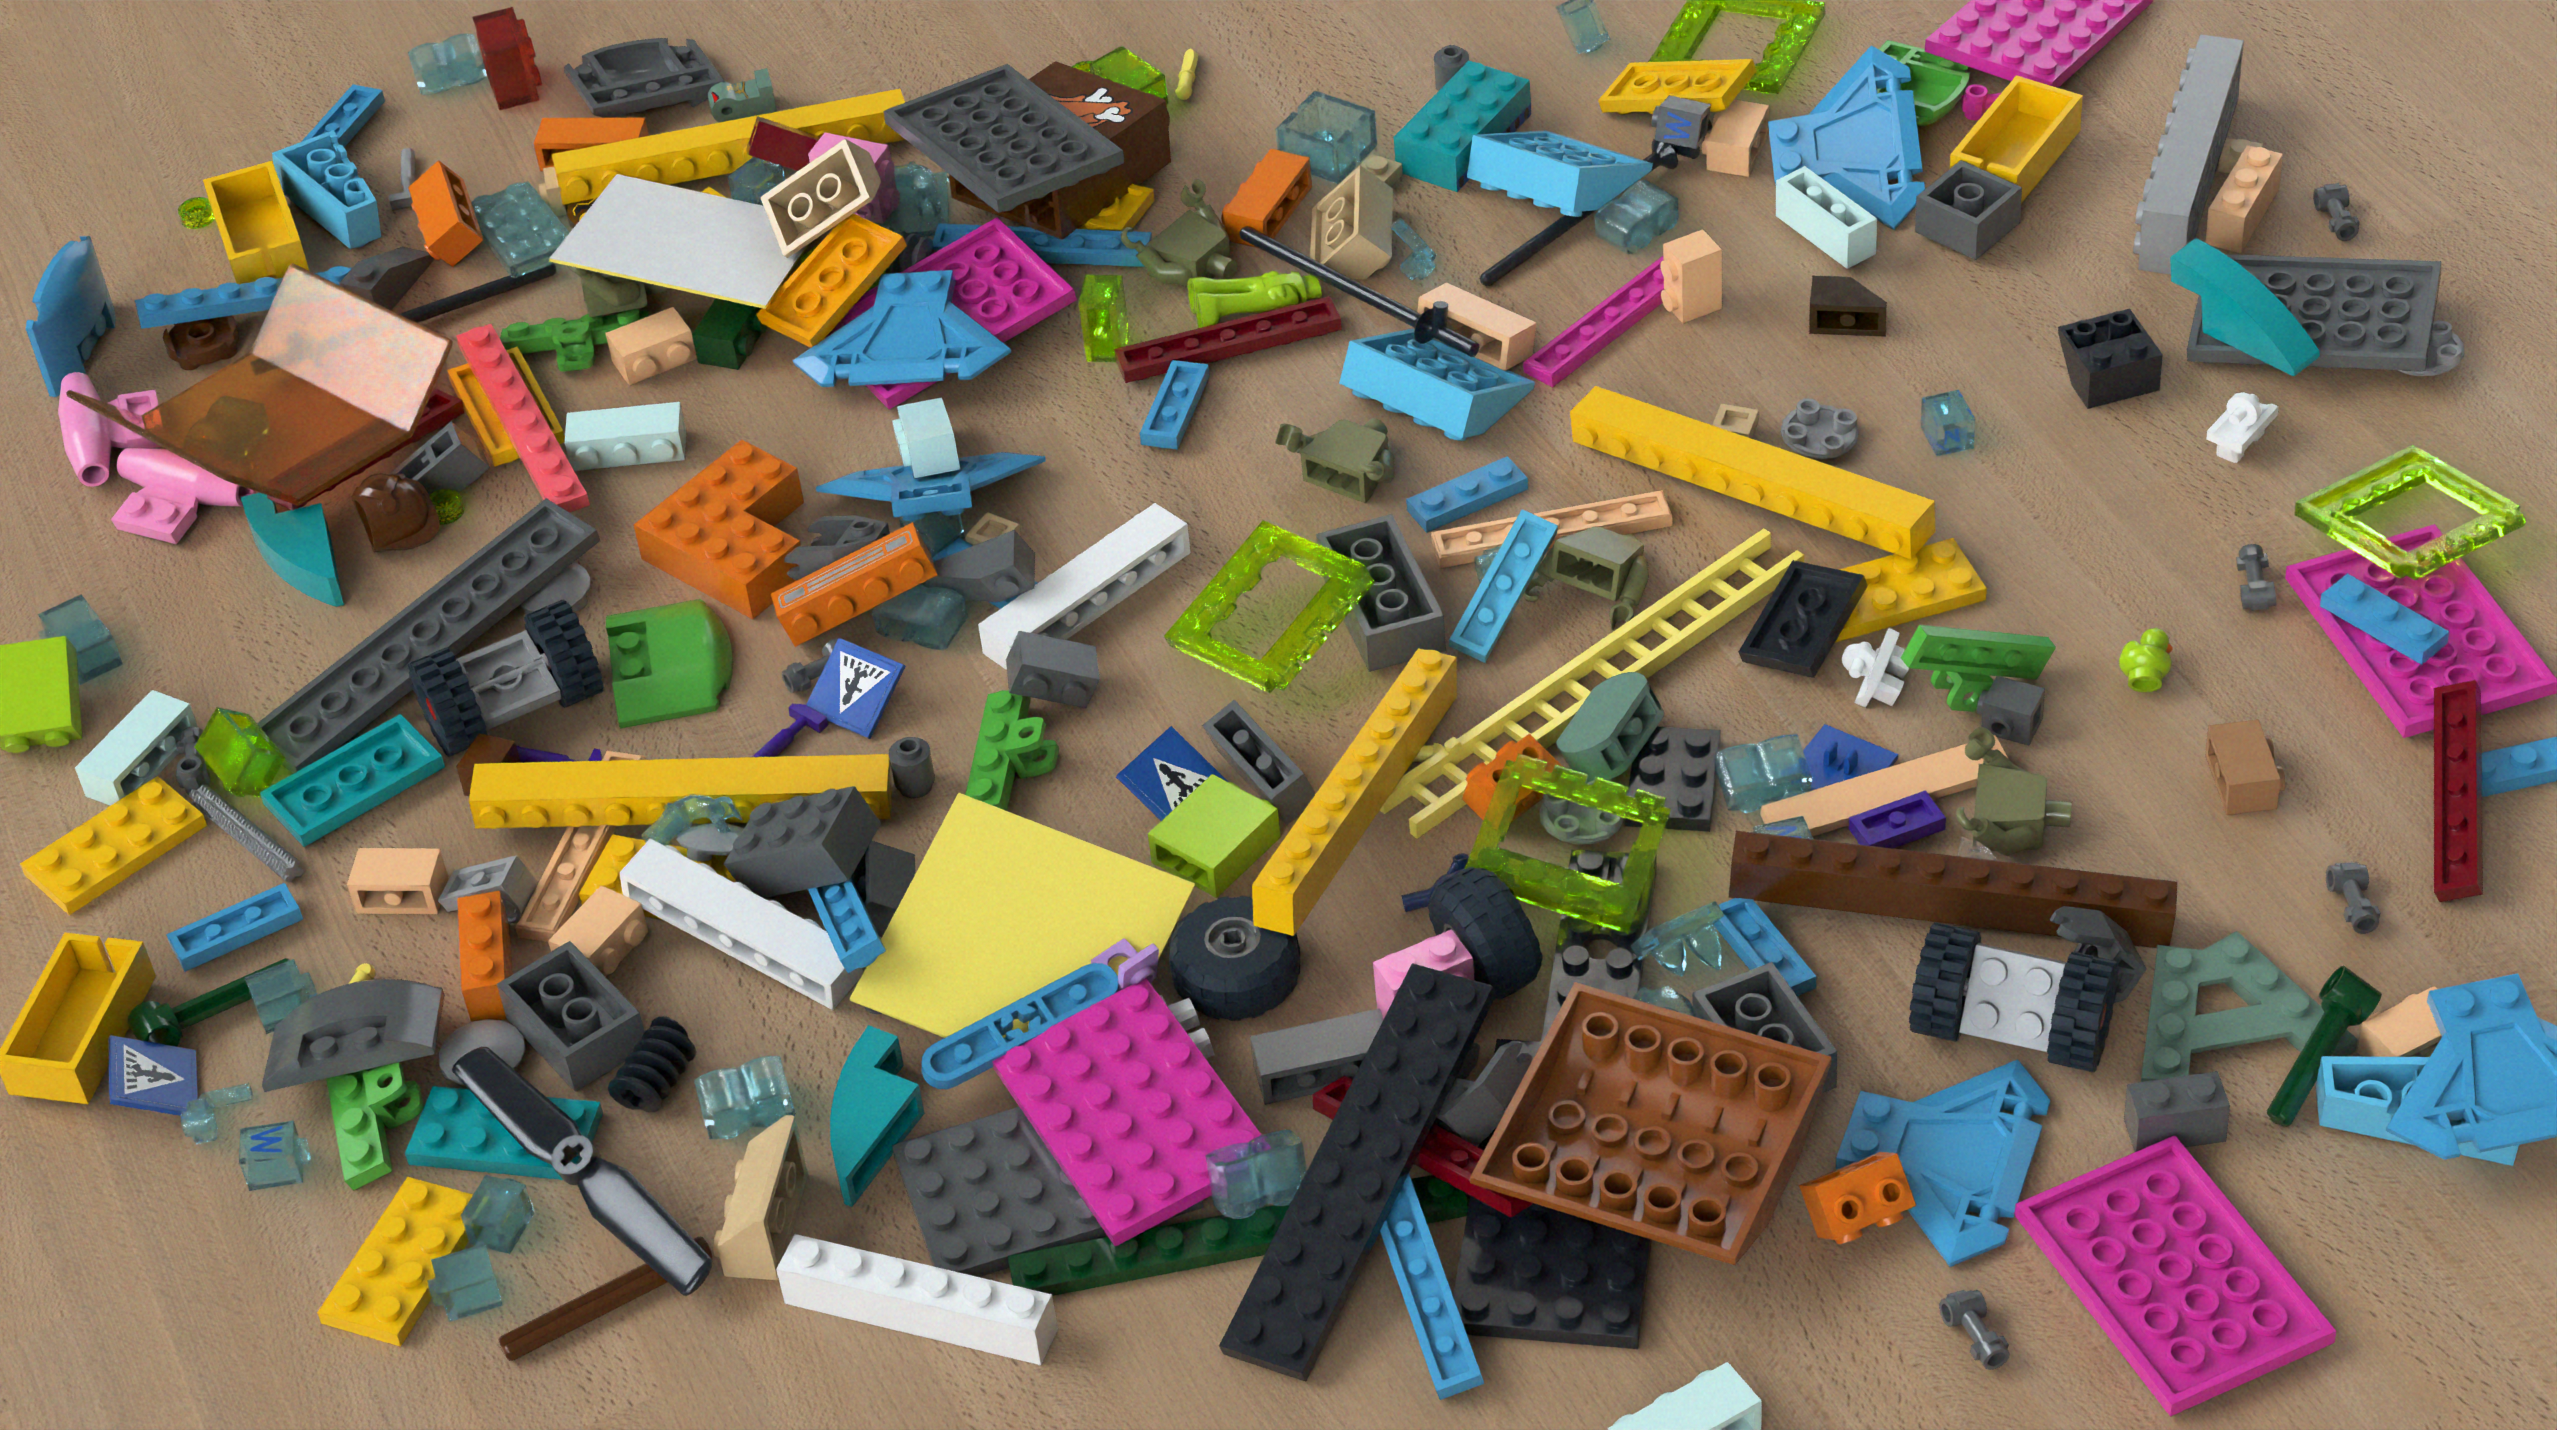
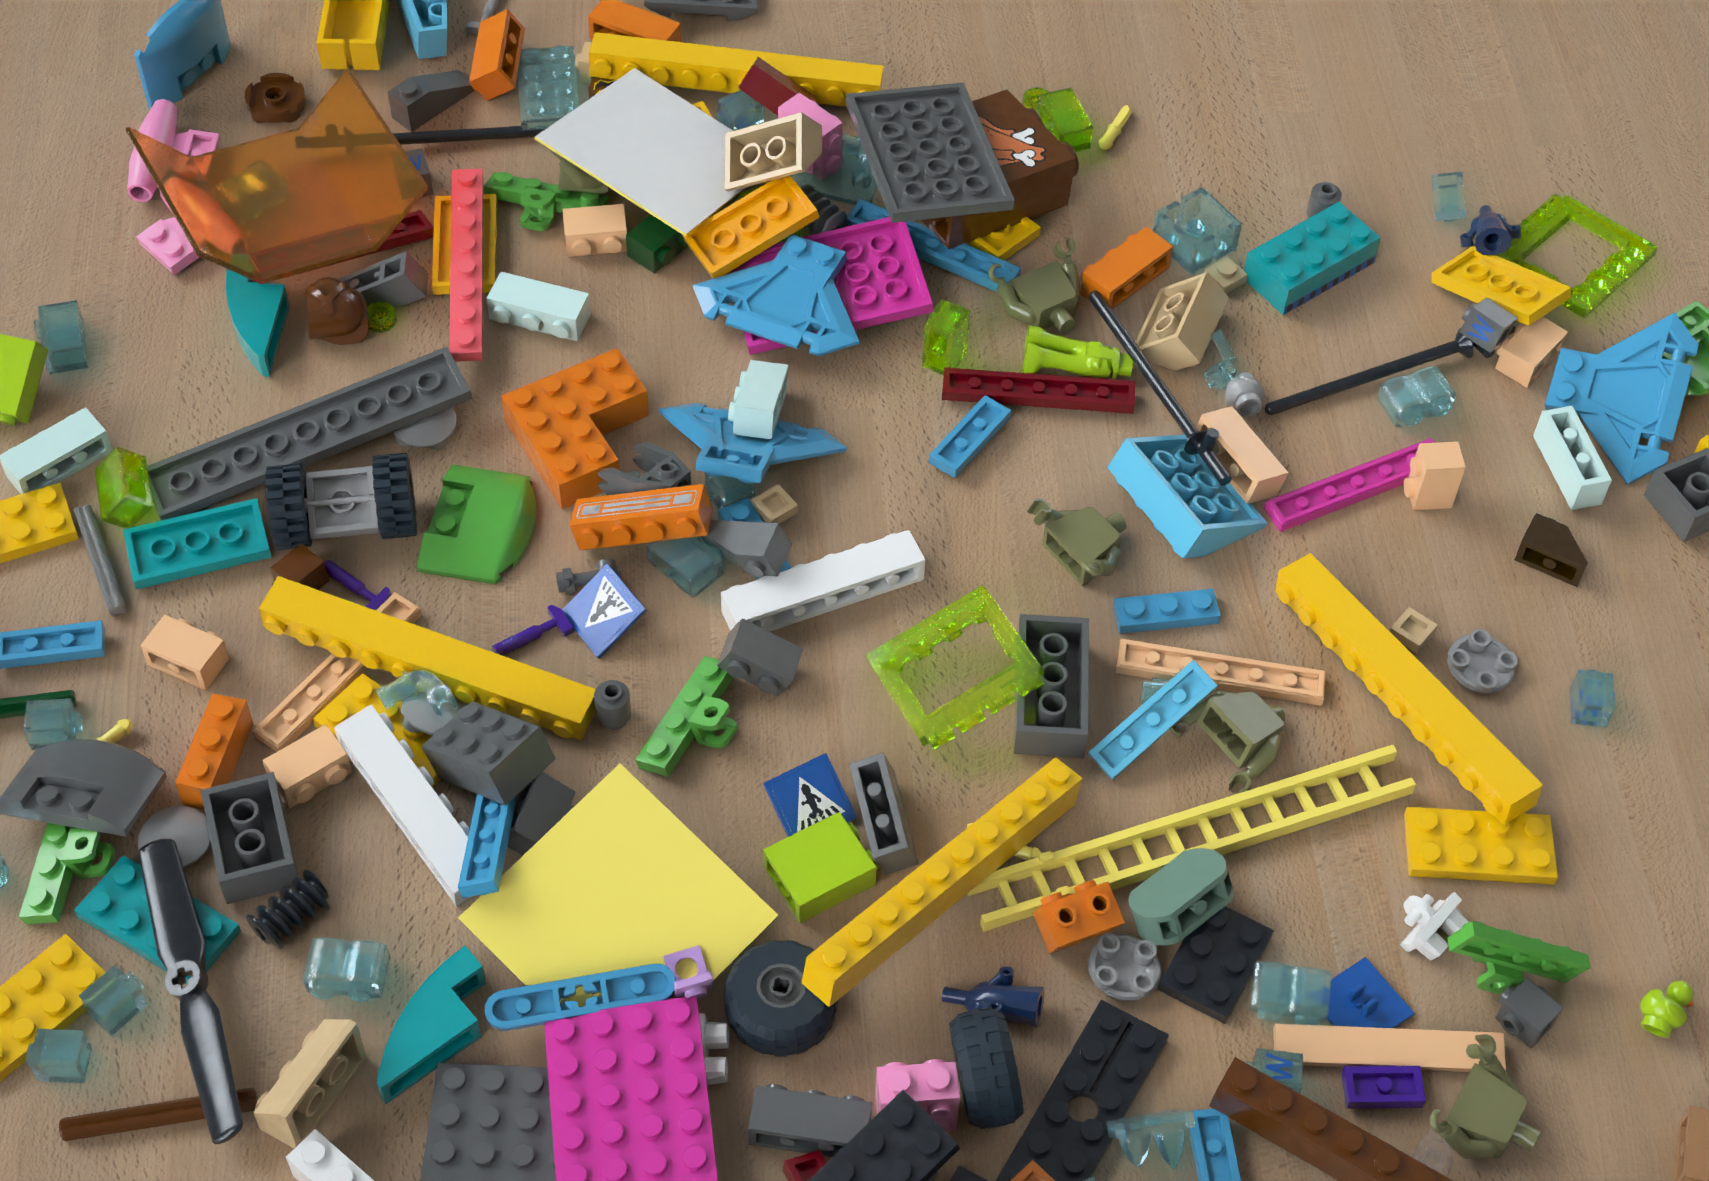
camera: 15 degrees right, 10 degrees up
(190, 770) = (85, 488): dark grey bar -> none
(223, 301) = (309, 74): dark azure plate -> none
(502, 875) = (248, 683): light grey plate -> none
(743, 98) = (765, 30): sand green leg -> none
(1454, 268) = (1245, 394): none -> light grey animal
(1552, 169) = (1367, 327): medium azure slope -> none
(1556, 886) = (1061, 1037): clear neon green hinge -> none
(1644, 43) = (1491, 232): none -> dark blue piece
(1803, 618) = (1387, 850): black plate -> none

